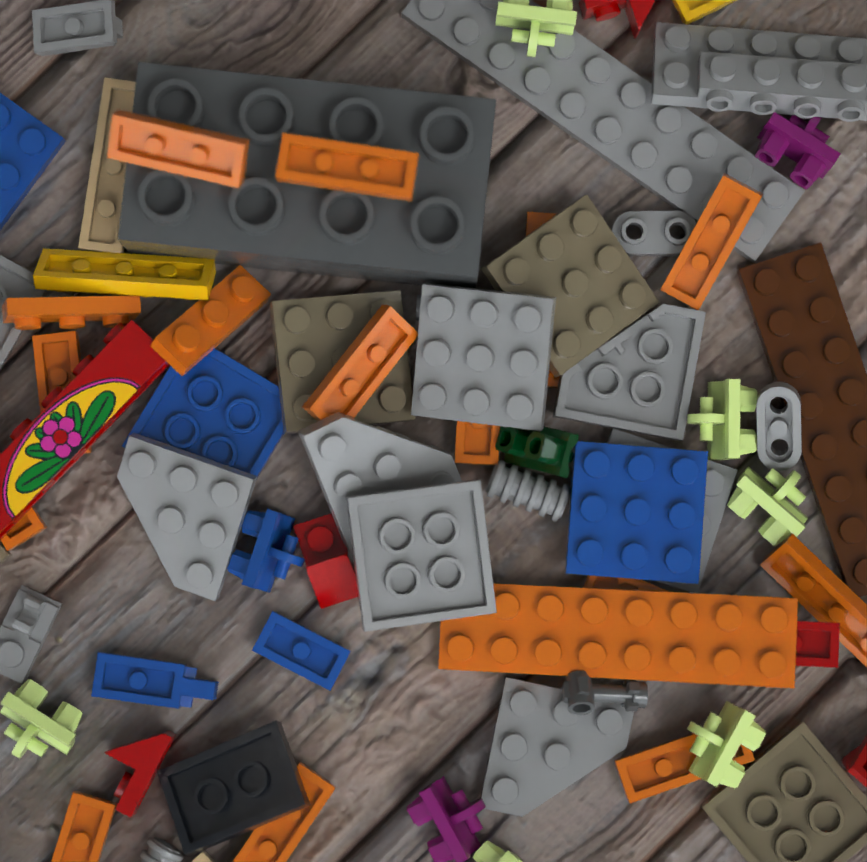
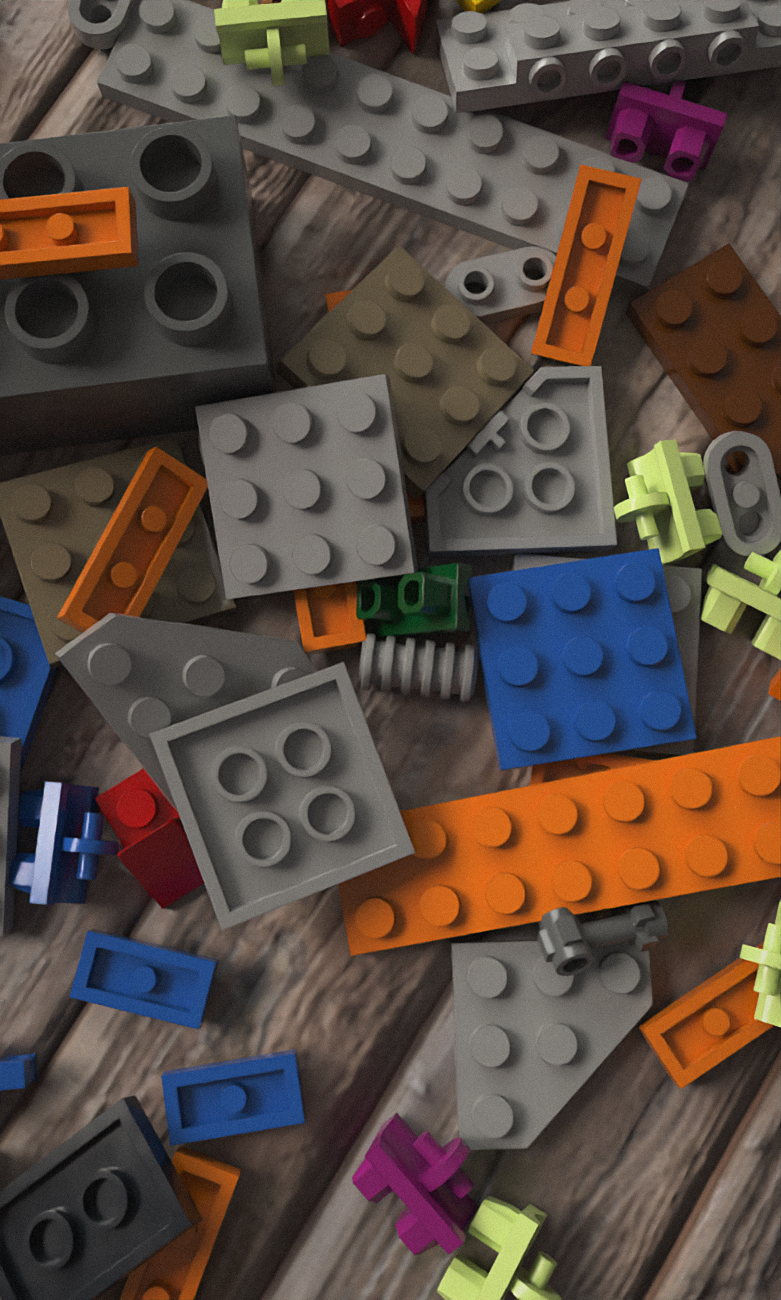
camera: 10 degrees left, 5 degrees down
(342, 739) = (233, 1097): none -> blue plate

